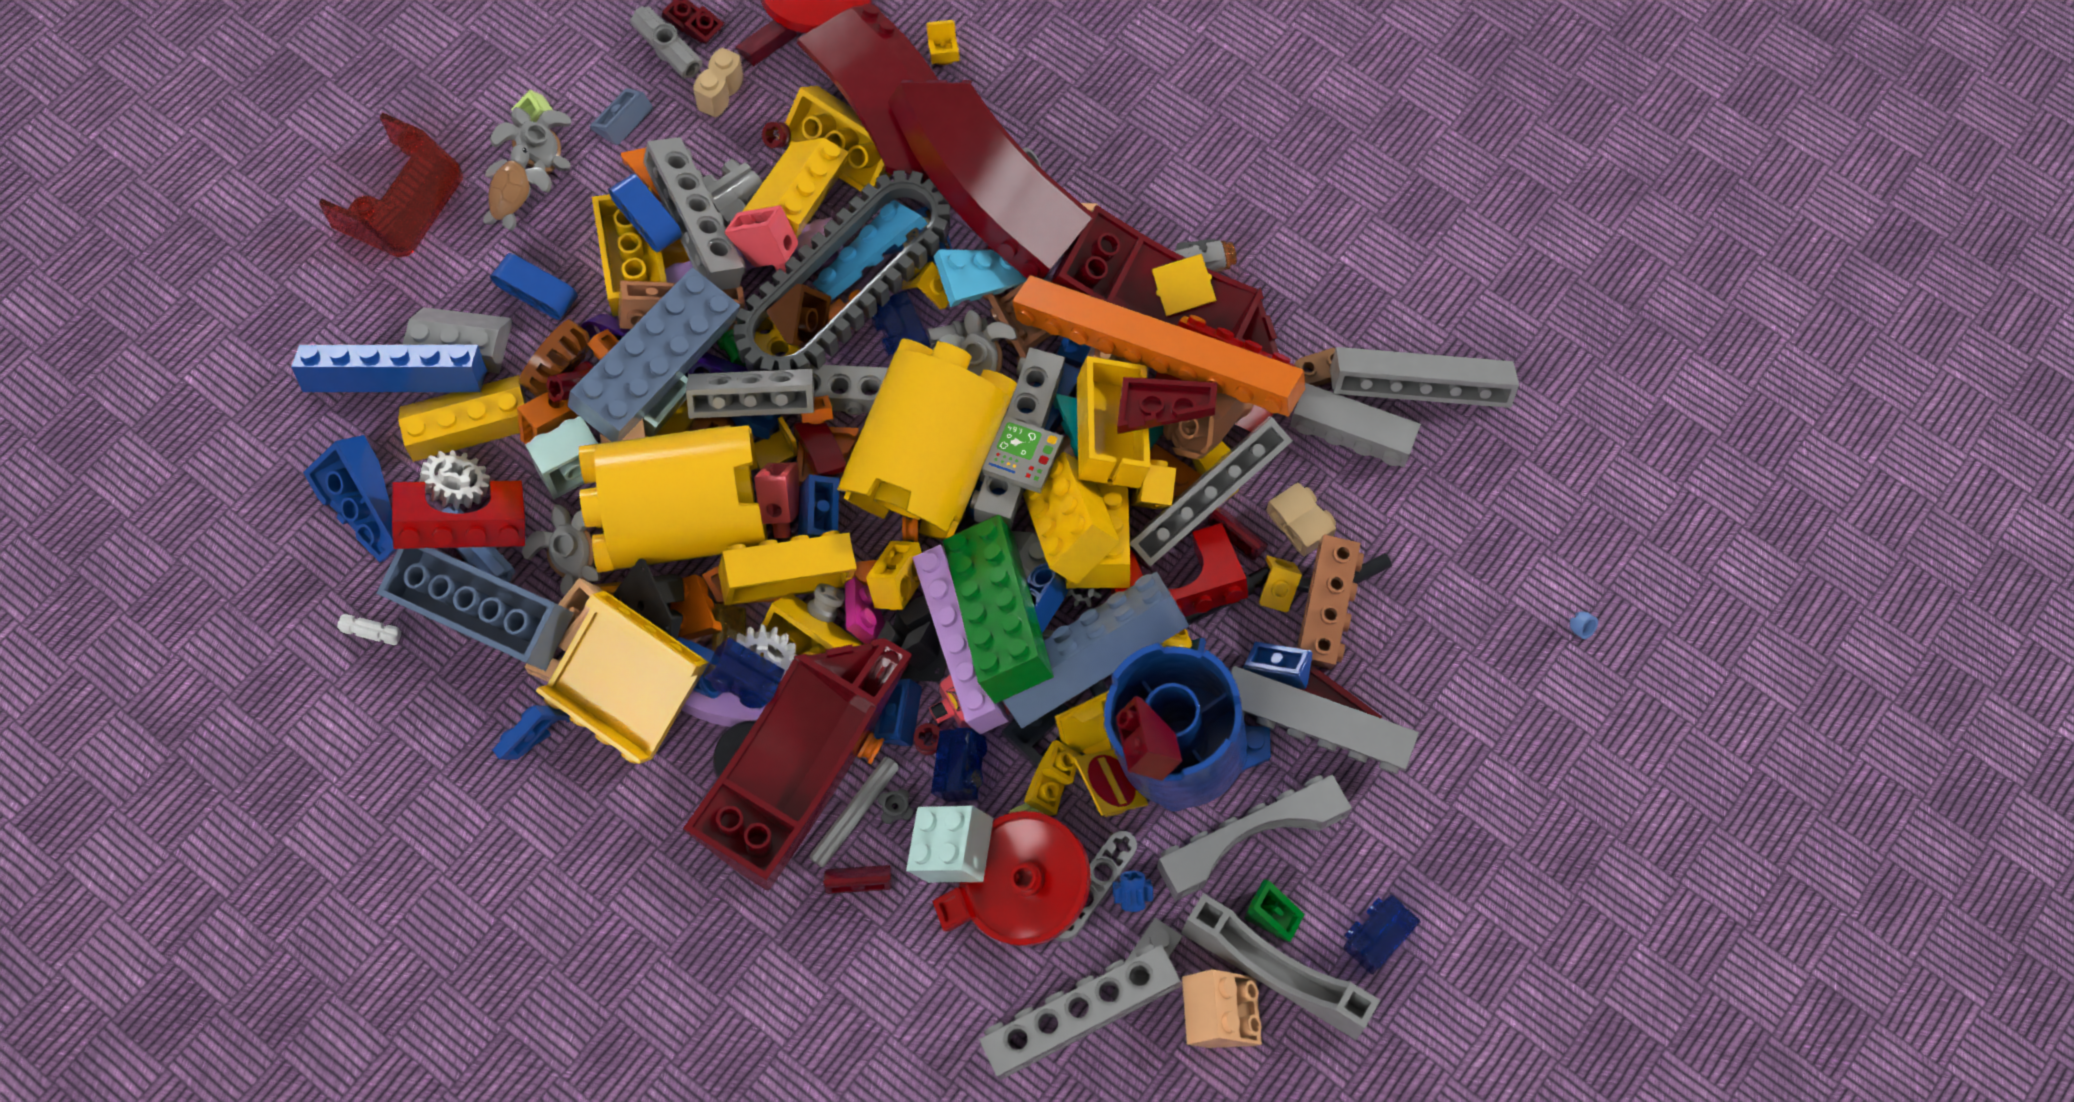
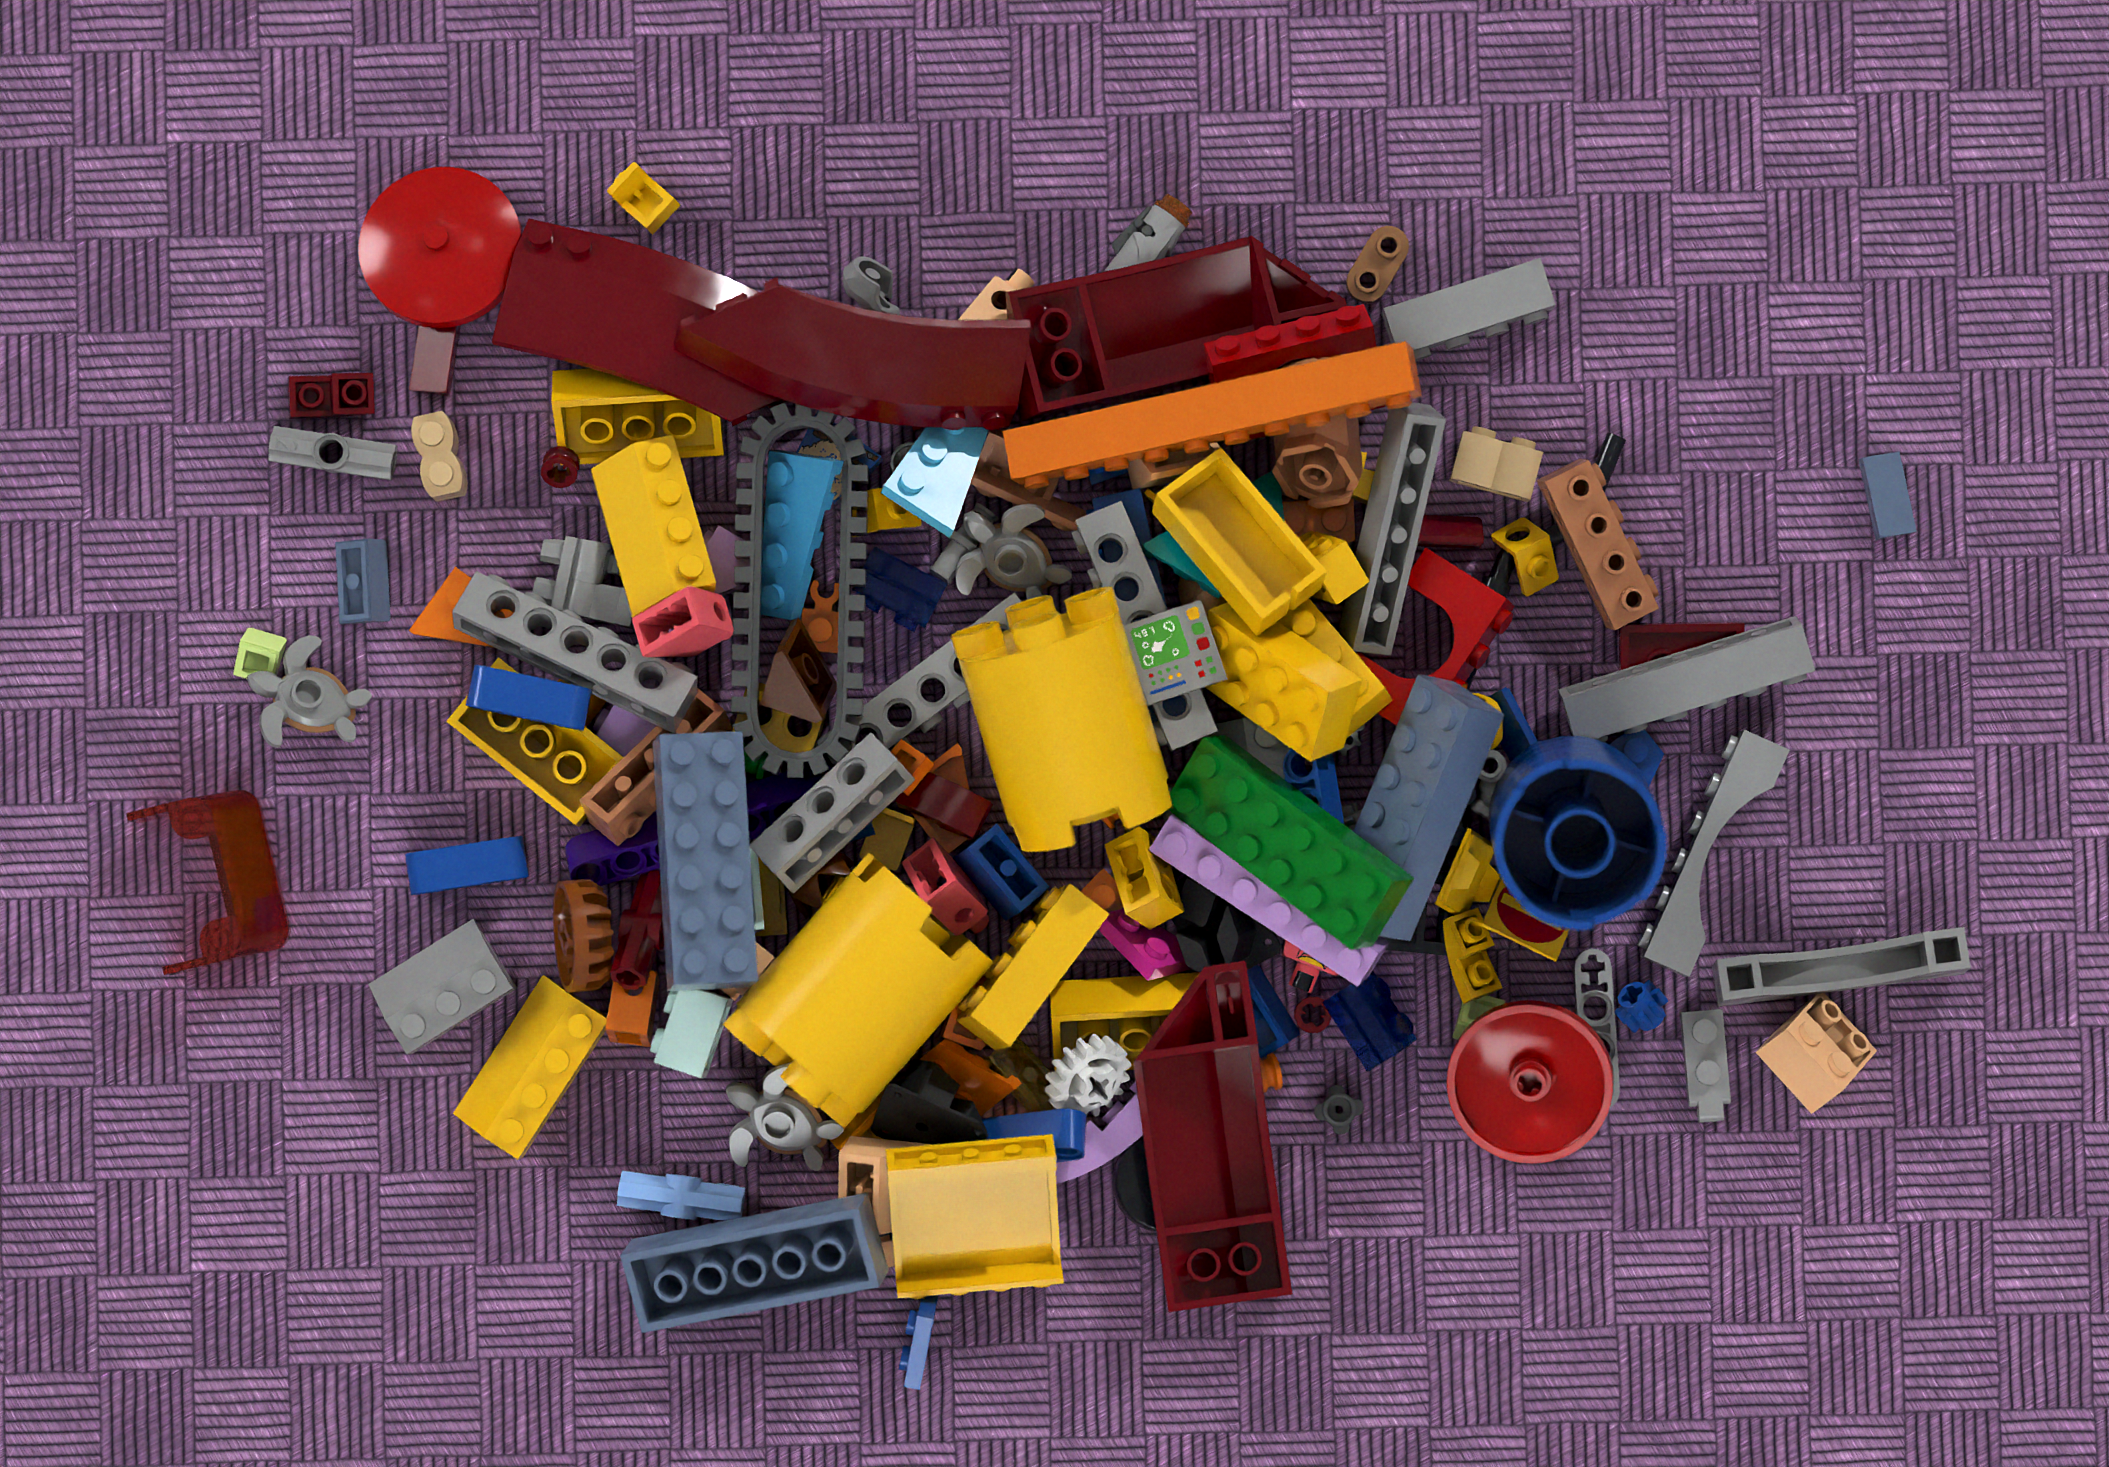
camera: 35 degrees left, 20 degrees up
(354, 486) = (500, 1238): blue wedge -> none
(369, 629) = (655, 1367): white axle -> none
(389, 368) = (414, 1088): blue brick -> none
(421, 526) = (636, 1235): red arch -> none
(454, 479) = (607, 1159): white gear -> none
(512, 186) = (336, 773): animal -> none
(602, 343) = (626, 879): orange plate -> none
(743, 674) = (1095, 1117): clear blue brick -> none
(825, 603) = (1097, 965): light grey wheel -> none
(854, 812) = (1303, 1147): light grey axle -> none
(857, 879) = (1364, 1209): dark red slope -> none
(950, 844) = (1432, 1110): light aqua brick -> none
(953, 909) = (1483, 1164): red tile -> none
(1070, 1029) = (1655, 1266): light grey brick -> none
(1147, 741) = (1583, 897): dark red slope -> none
(1163, 402) = (1282, 487): dark red wing -> none
(1184, 285) = (1165, 296): yellow piece -> none
(1274, 912) = (1791, 913): green slope -> none
(1280, 663) = (1600, 652): blue slope -> none
(1380, 934) = (1909, 850): clear blue brick -> none
(1423, 377) = (1501, 197): light grey brick -> none
(1530, 716) = (1887, 495): none -> sand blue slope
(1583, 624) = (1869, 348): medium blue hinge -> none

